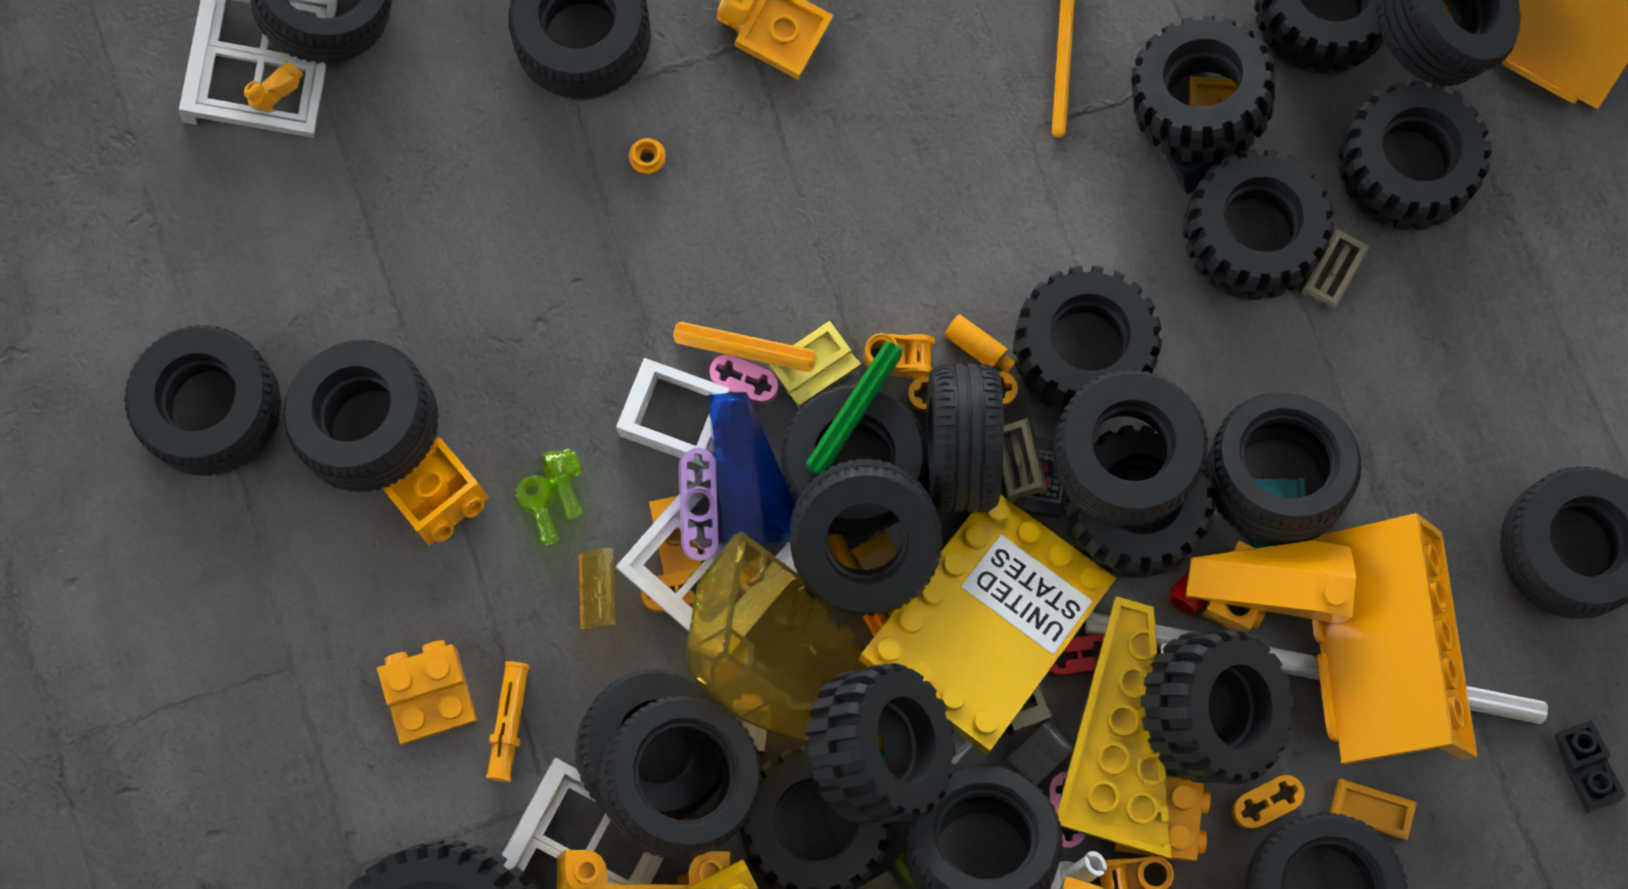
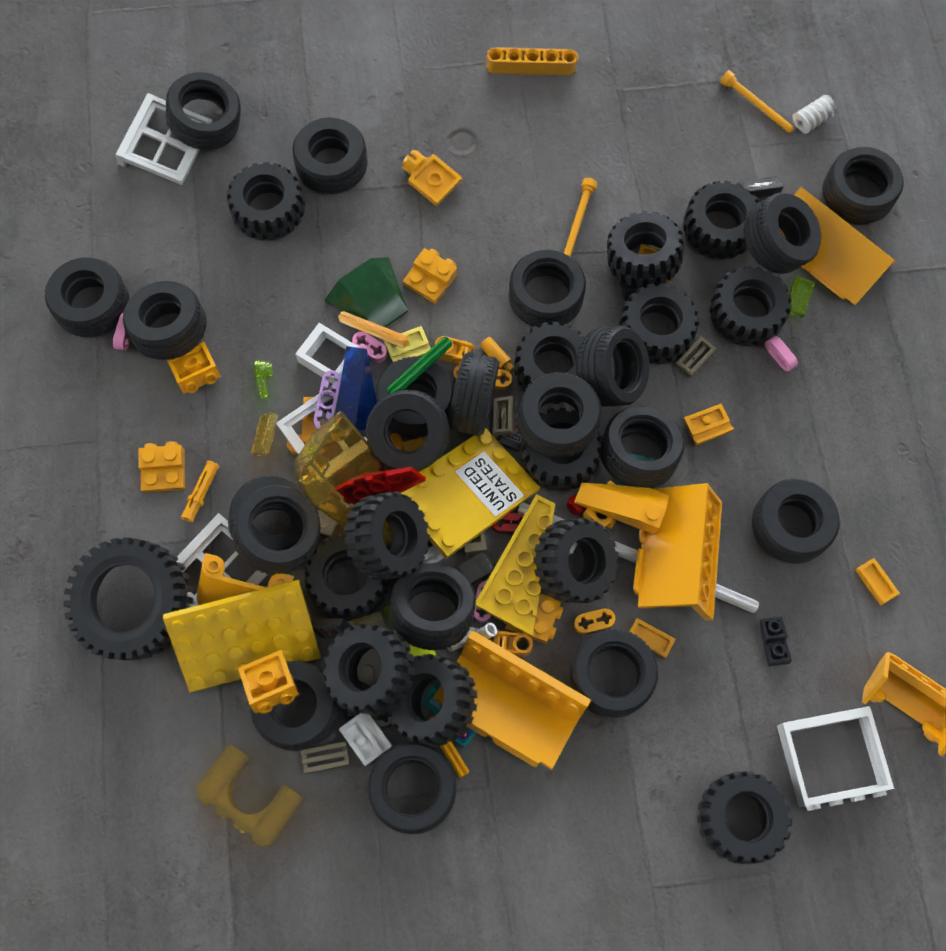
camera: 10 degrees right, 5 degrees down
(276, 86) = (169, 153): light orange arm -> none
(285, 461) = (121, 339): none -> bright pink beam
(469, 99) = (261, 180): none -> black tyre
(538, 505) = (246, 386): clear neon green bar -> none
(647, 146) = (348, 222): light orange plate -> none
(720, 278) = (370, 293): none -> dark green wedge
(818, 655) = (379, 482): none -> red wedge
(821, 218) = (430, 275): none -> light orange plate
(1056, 154) = (552, 264): none -> black tyre
(1201, 328) = (630, 361): none -> black tyre
(1386, 394) = (708, 424): none -> light orange plate
(1487, 231) = (781, 353): none -> bright pink beam
(1497, 109) = (800, 295): none -> clear neon green tile

